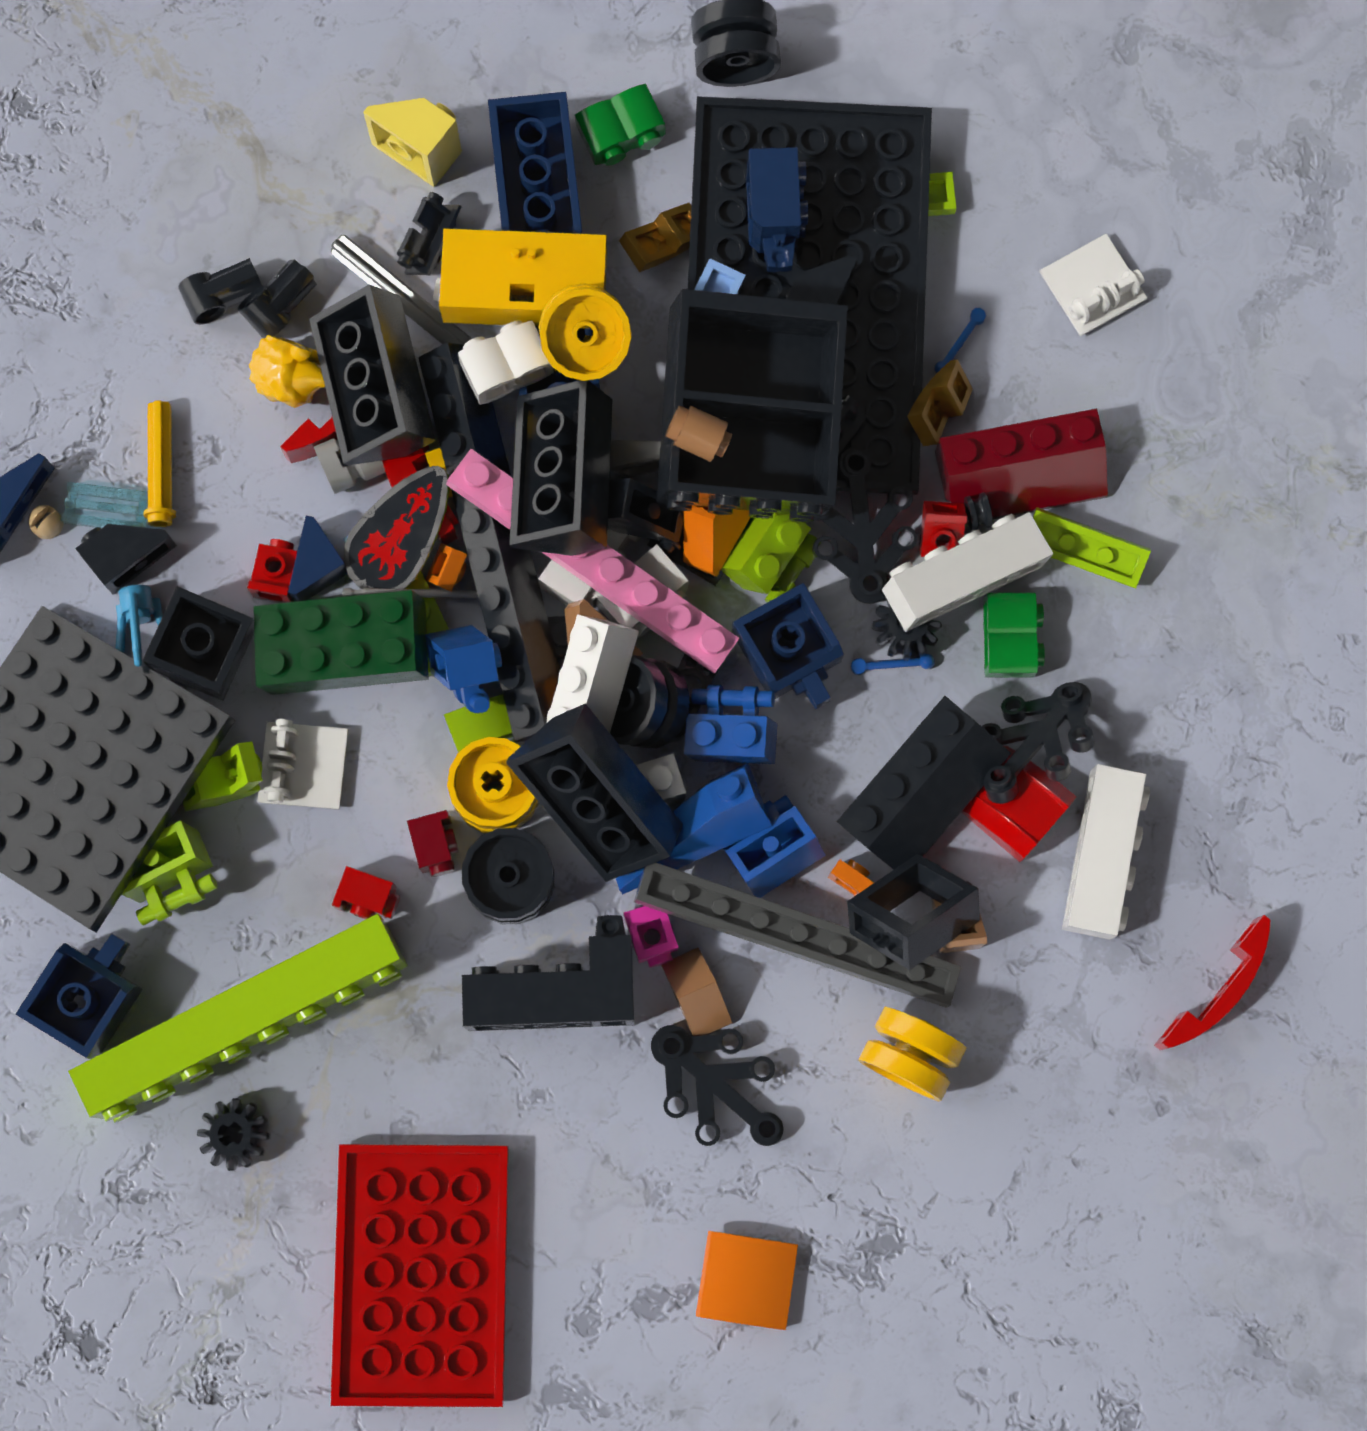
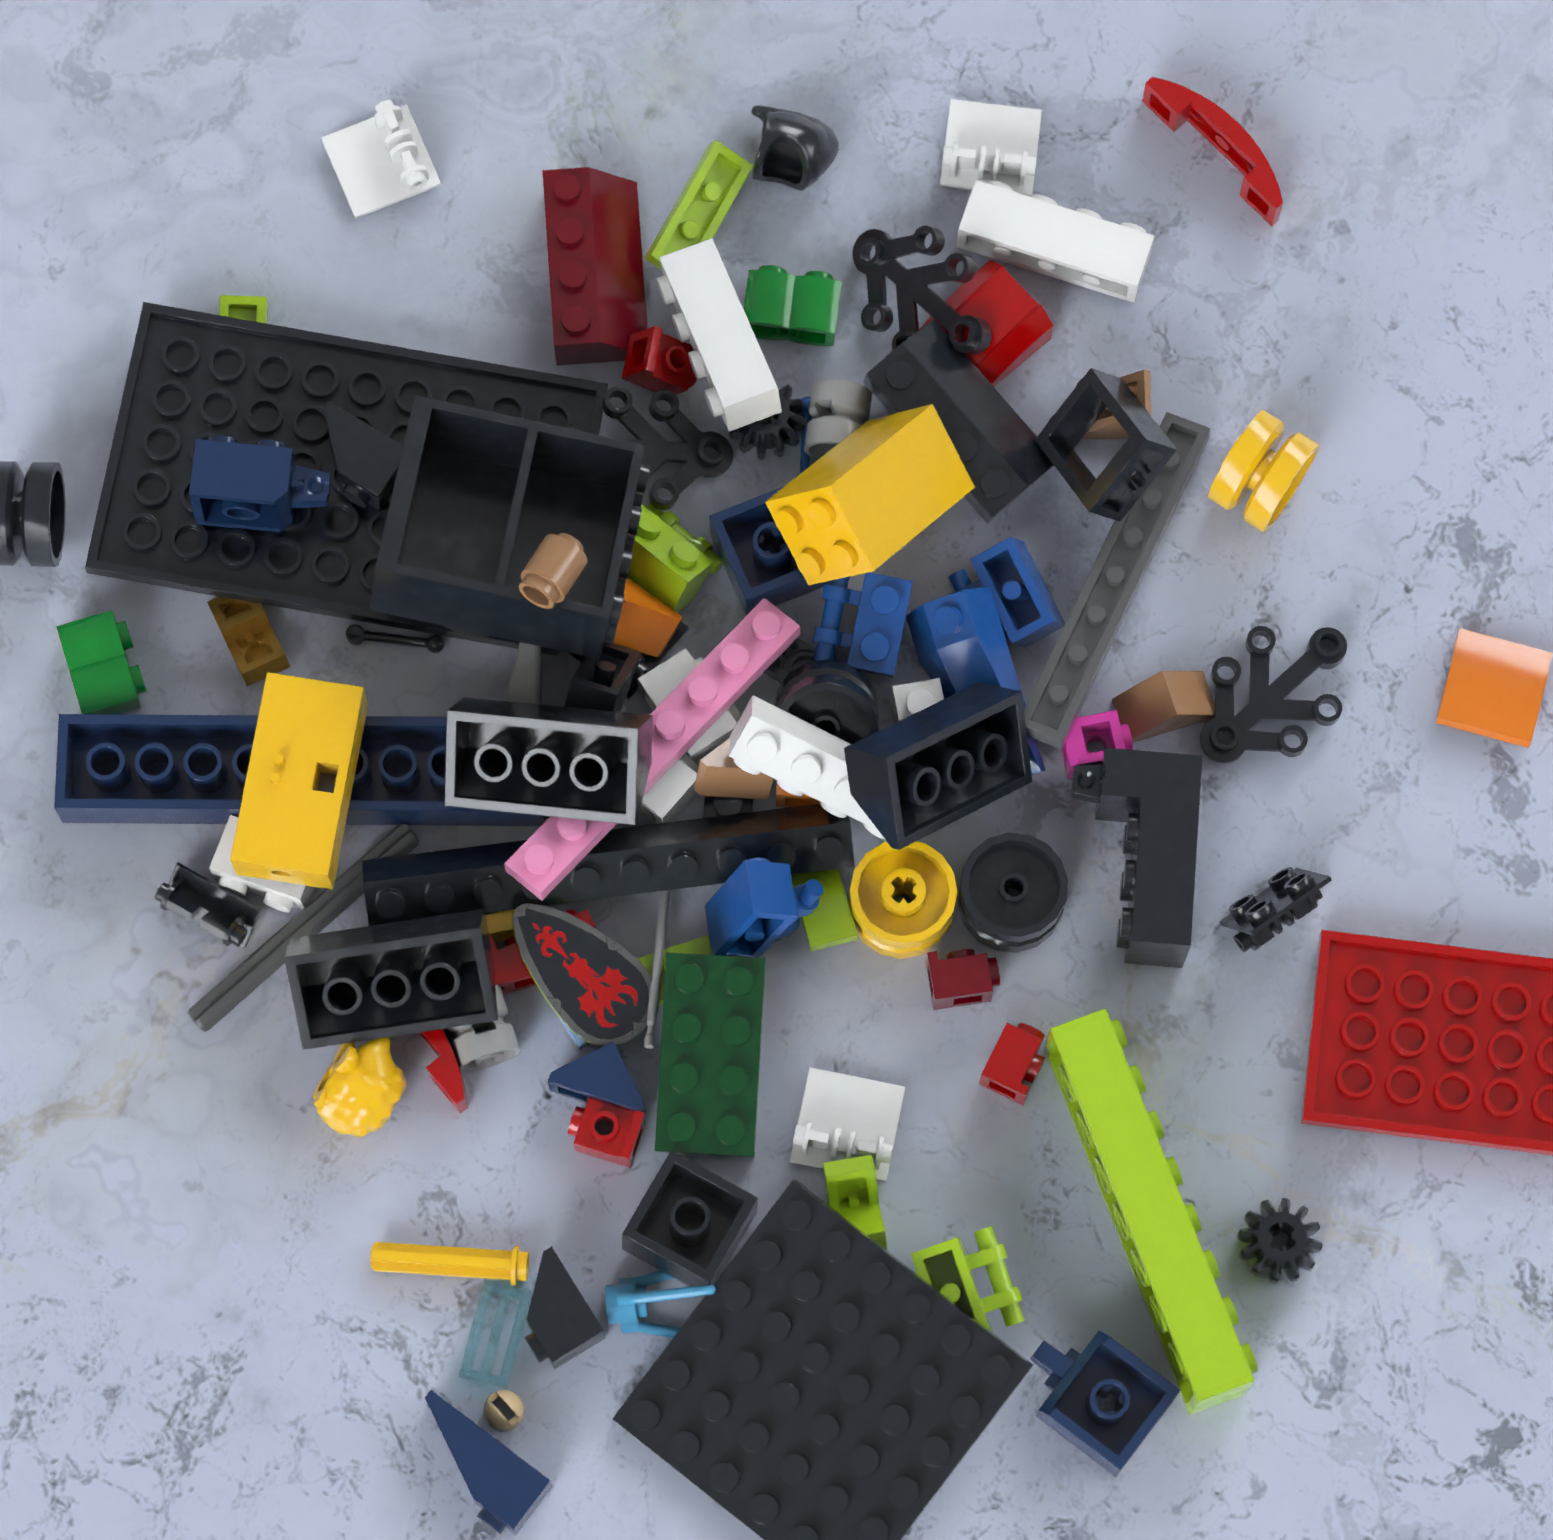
camera: 80 degrees left, 5 degrees down
(211, 294) = (241, 1176): black piece -> none
(270, 305) = (269, 1106): black piece -> none
(416, 136) = (84, 902): light yellow slope -> none
(447, 567) = (630, 926): orange plate -> none
(504, 361) = (399, 815): white brick -> none
(532, 1110) = (1288, 896): none -> black hinge
(594, 355) = (391, 703): yellow wheel -> none
(720, 279) = (332, 568): light blue plate -> none
(832, 710) = (870, 495): none -> yellow brick
(850, 876) = (1053, 516): orange plate -> none
(910, 685) = (837, 411): none -> light grey wheel
(940, 399) = (501, 343): pearl gold slope -> none
(976, 318) = (400, 296): blue hinge -> none
(978, 511) = (644, 315): black bush -> none
(1158, 618) = (792, 148): none -> black piece
(1187, 790) = (990, 145): none -> white hinge

